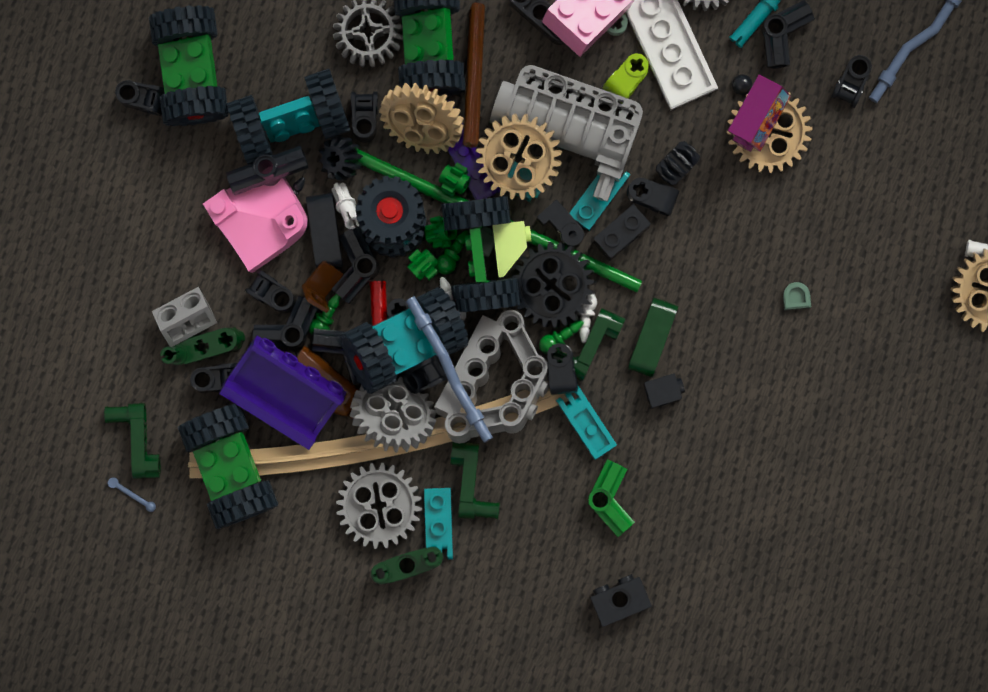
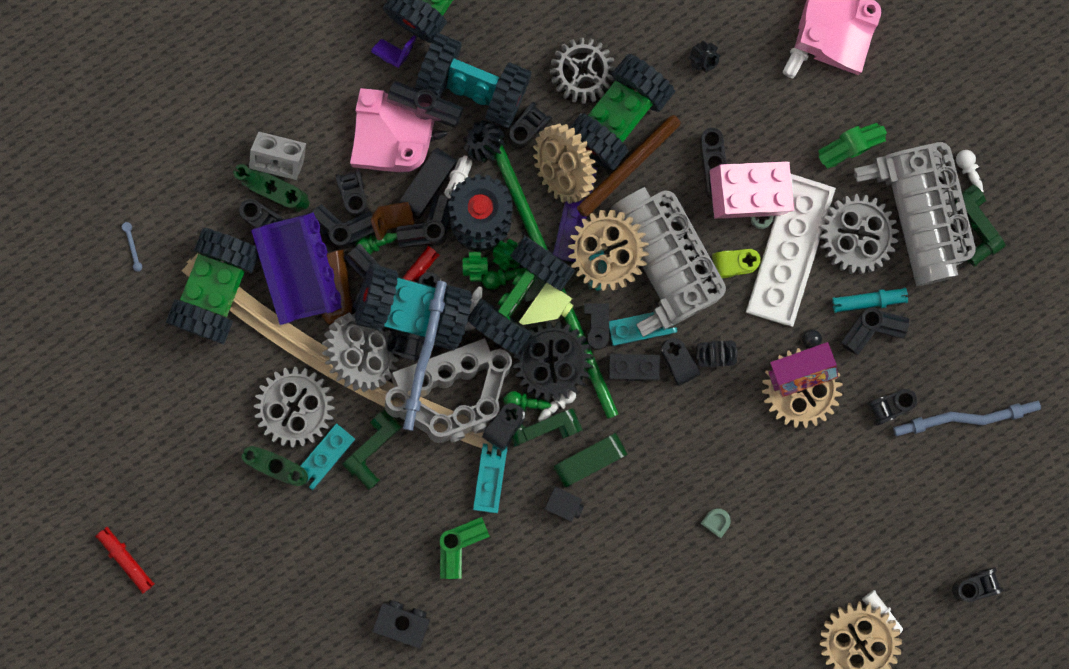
camera: 30 degrees right, 0 degrees up
(142, 464) = (158, 232): dark green beam -> none
(201, 154) = (391, 53): none -> dark purple bracket
(454, 179) = (550, 226): green gear -> none

